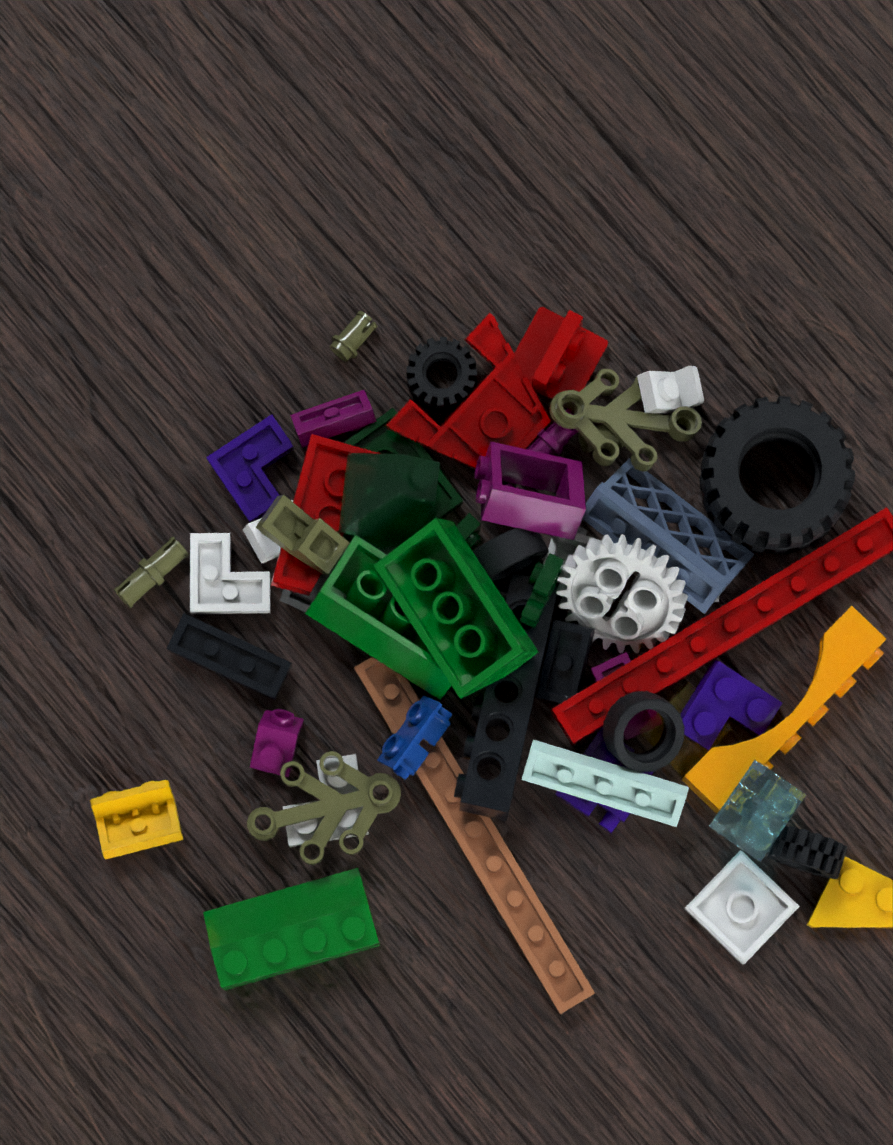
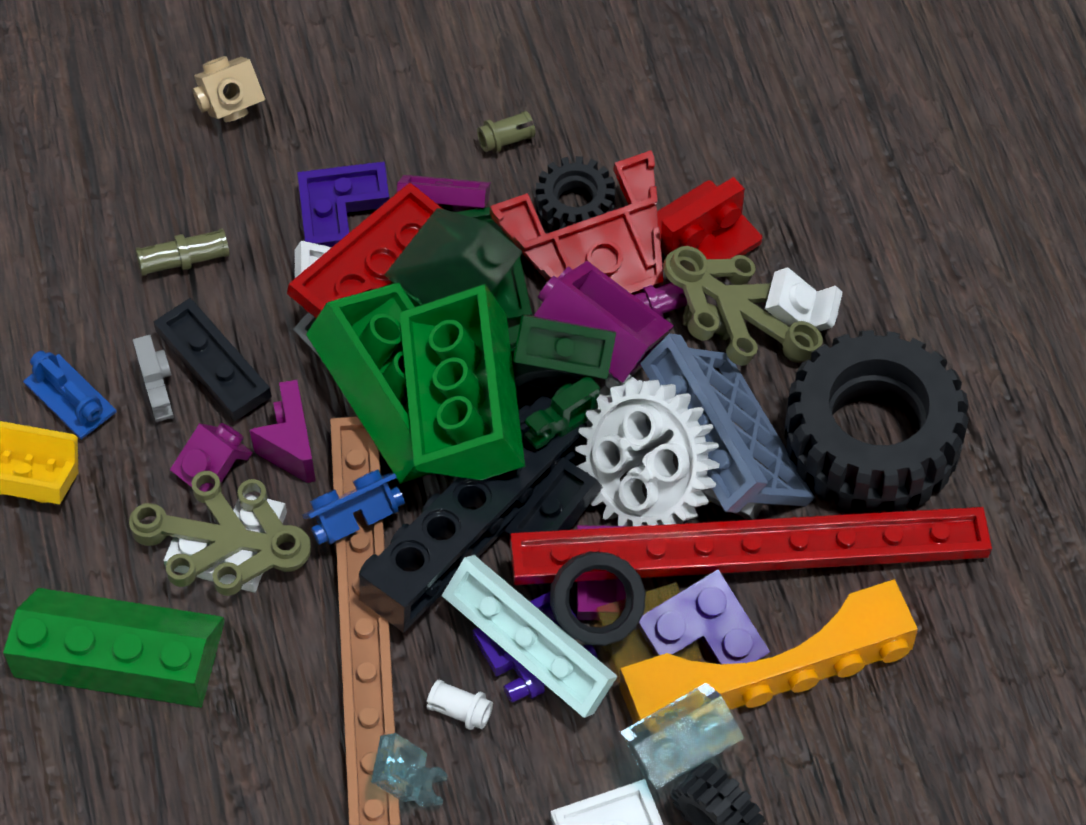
camera: 25 degrees right, 20 degrees down
(105, 405) = (241, 93): none -> tan brick
(132, 740) = (67, 394): none -> blue hinge
(189, 688) = (154, 369): none -> light grey plate
(218, 589) = (240, 292): white plate -> none
(302, 536) = (341, 255): olive slope -> none
(335, 702) = (287, 441): none -> magenta slope
(522, 541) = (564, 346): none -> dark green plate
(568, 932) = (403, 772): none -> clear light blue plate
(574, 854) = (460, 704): none -> white pin

